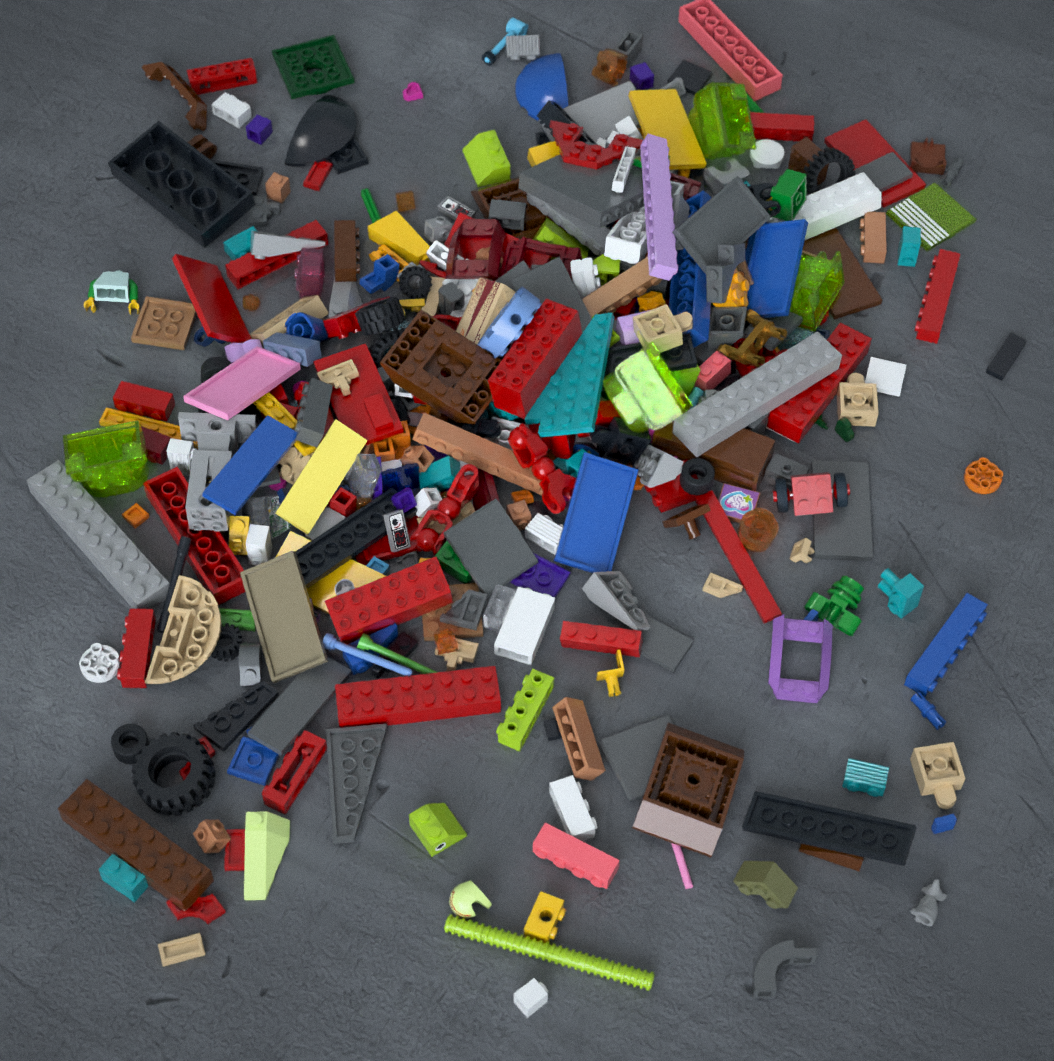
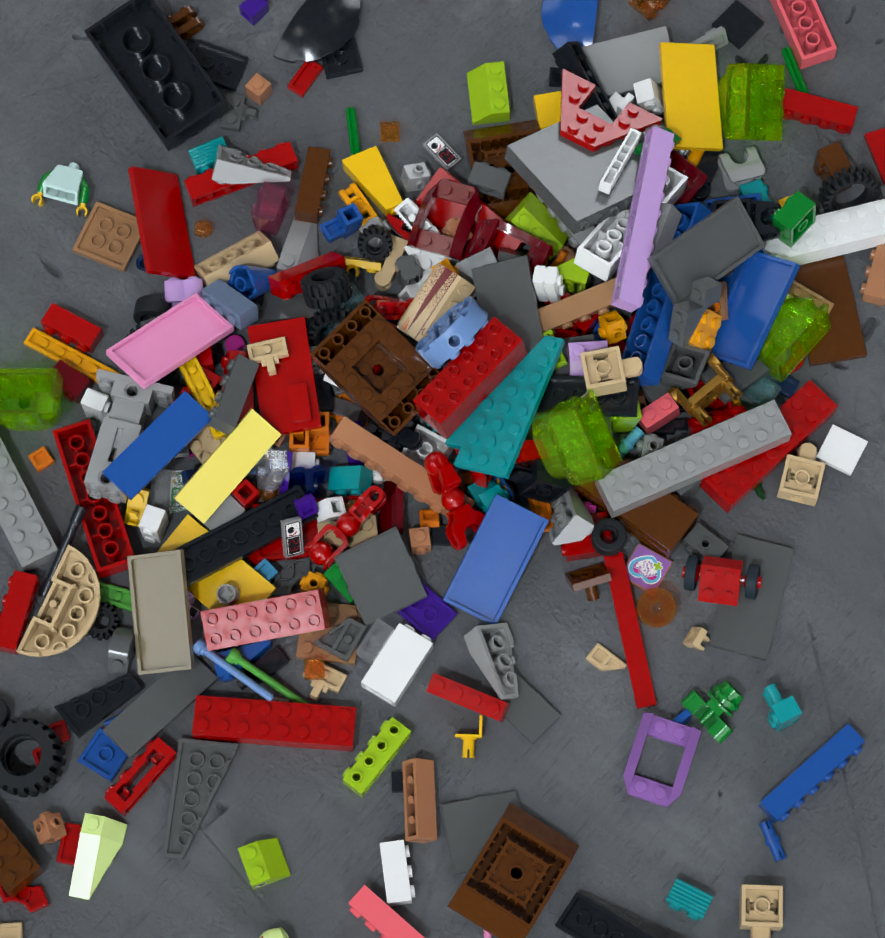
camera: 15 degrees right, 15 degrees up
(278, 275) = (243, 196): flat silver sticker -> none
(417, 455) = (330, 457): nougat brick -> none
(544, 532) = (441, 563): white brick -> none
(641, 76) = (683, 15): dark purple brick -> none
(767, 155) = (795, 143): white tile -> none
(844, 430) = (780, 505): dark green tile -> none

